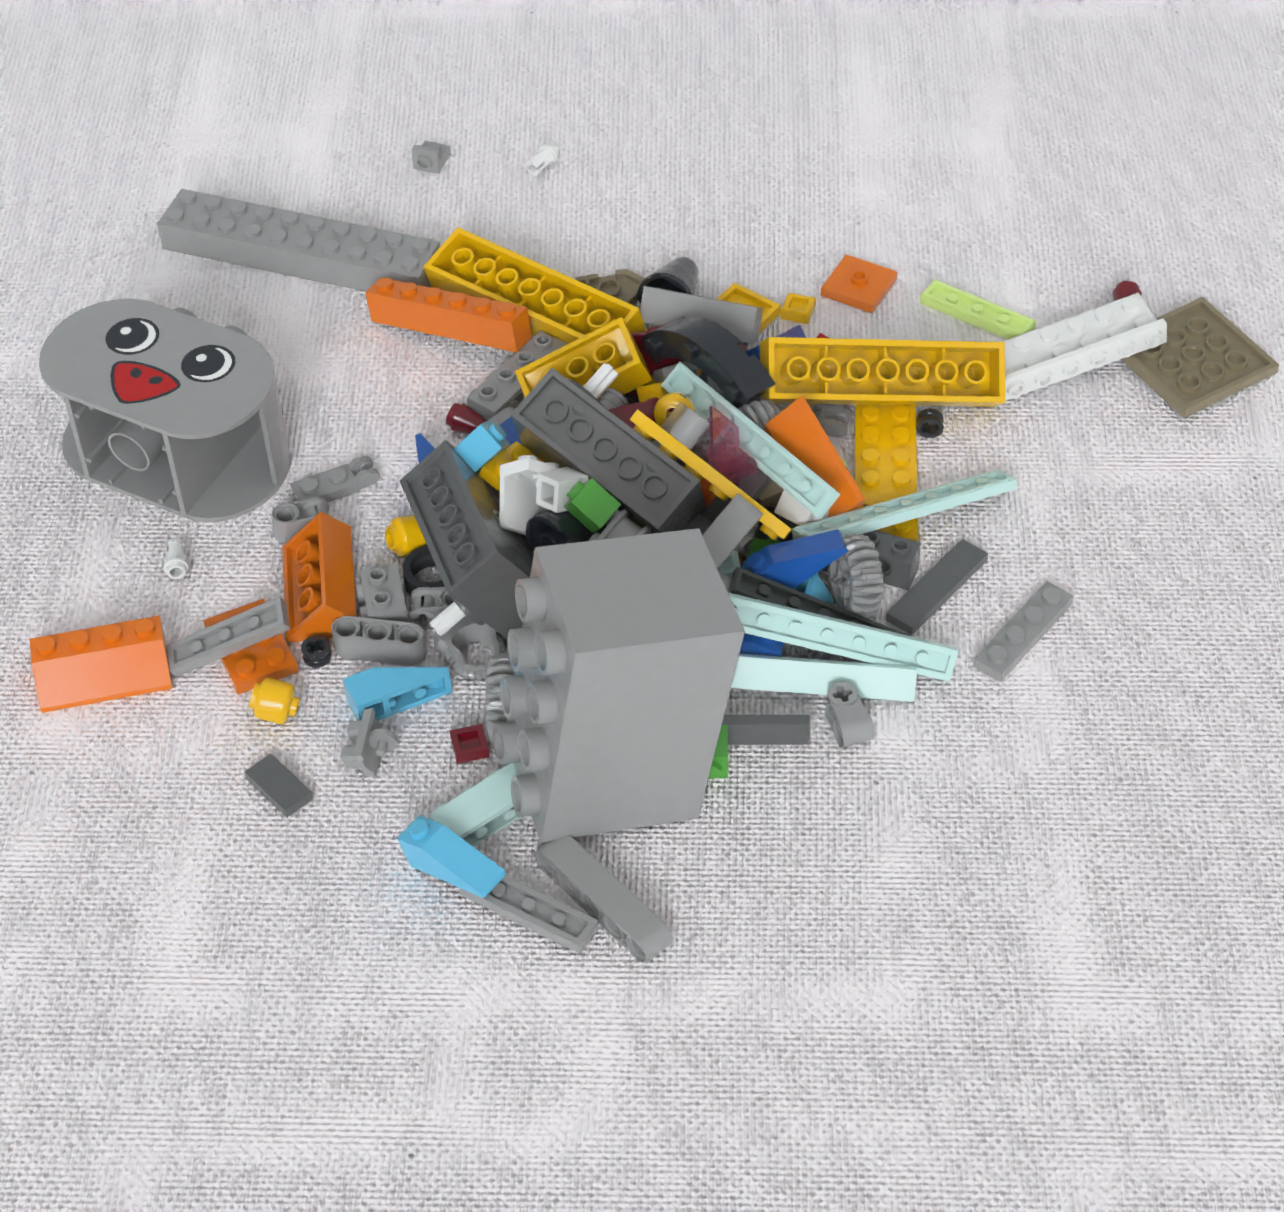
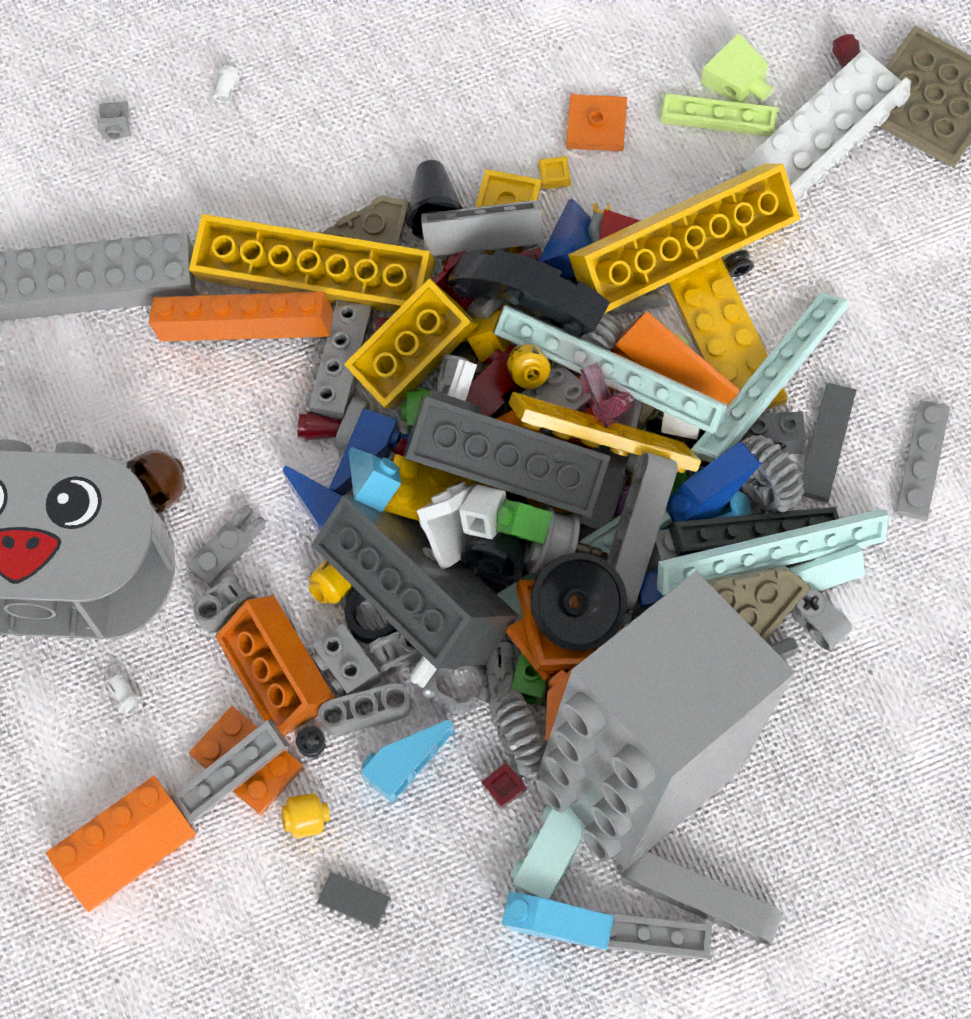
camera: 20 degrees left, 20 degrees up
(304, 409) = (160, 477): none -> reddish brown cylinder
(370, 740) = (418, 822): light grey hips -> none
(685, 425) = (562, 394): light grey beam -> none
(782, 672) = (762, 596): none -> dark tan plate
(1010, 282) = (737, 72): none -> yellowish green torso

